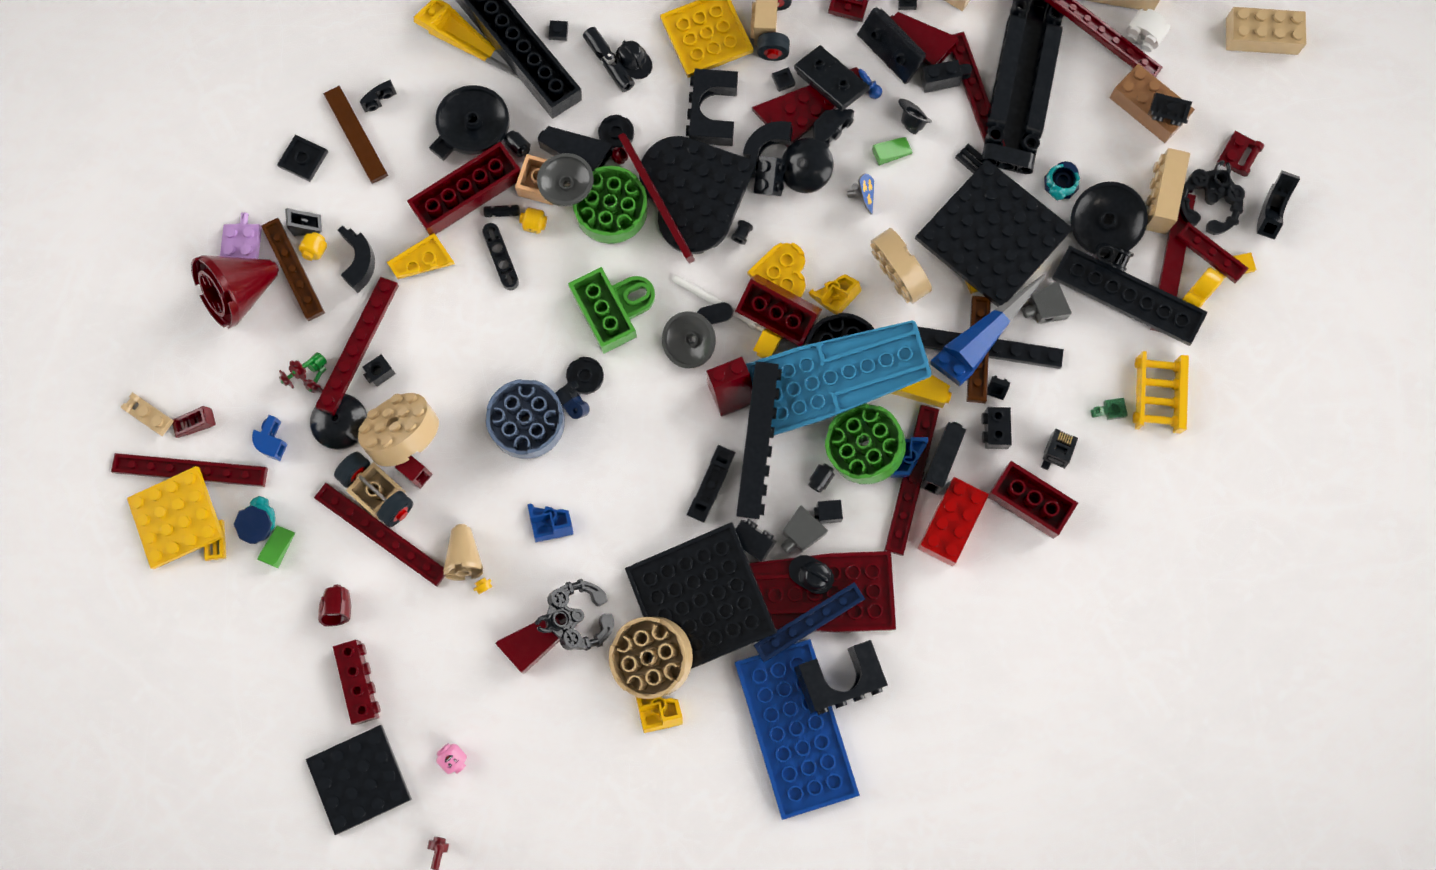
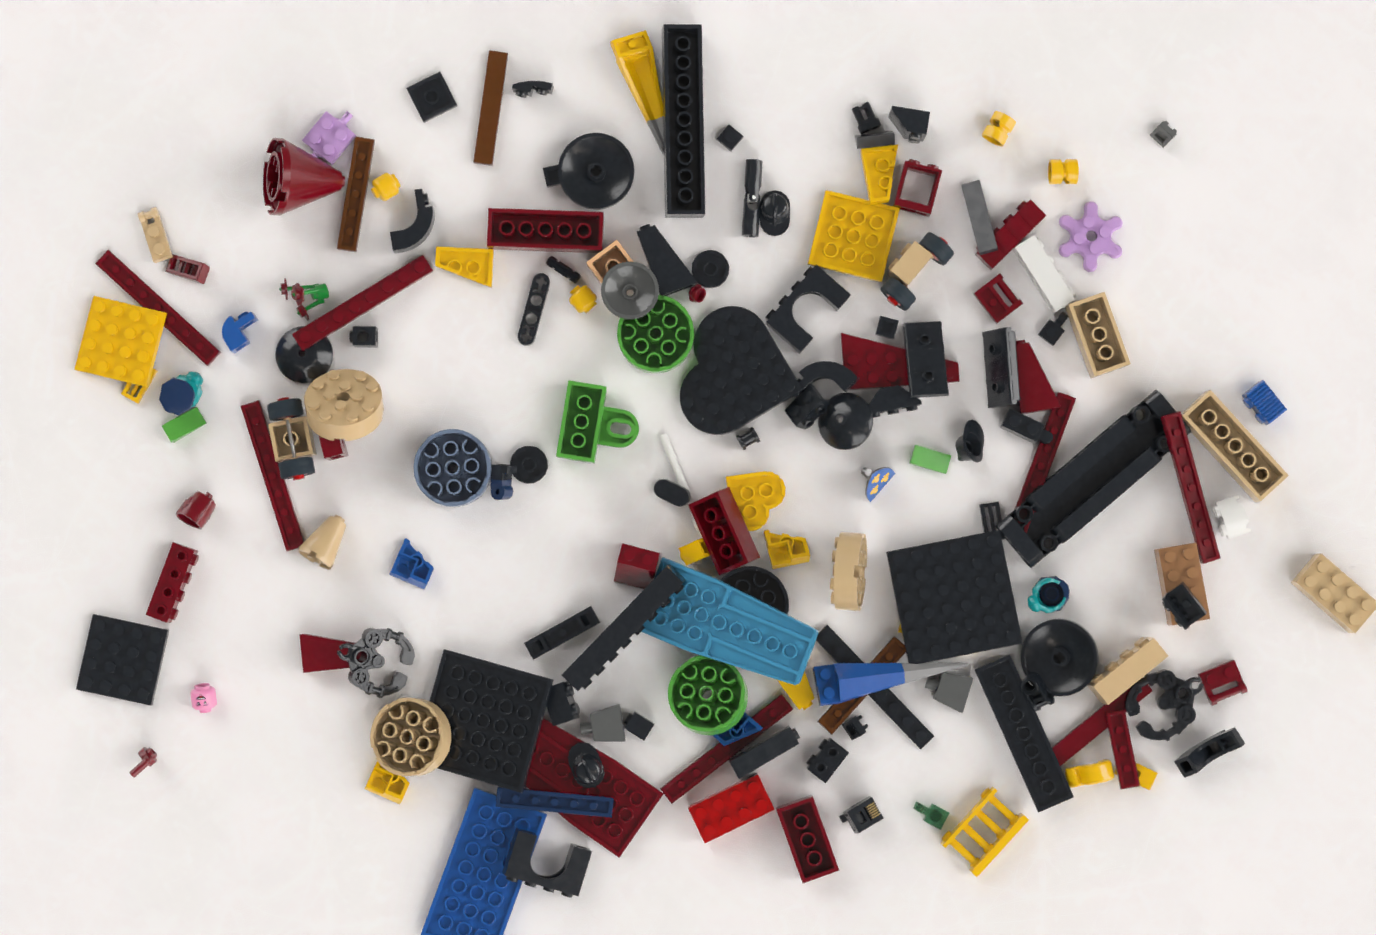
camera: 35 degrees right, 10 degrees up
(302, 222) = (392, 159): black slope -> none
(482, 585) = (323, 579): yellow plate -> none
(517, 143) = (619, 219): black brick -> none
(656, 198) = (696, 359): dark red tile -> none
(678, 339) = (624, 503): dark grey dish -> none
(821, 477) = (654, 693): black brick -> none
(875, 90) = (957, 394): blue bar -> none

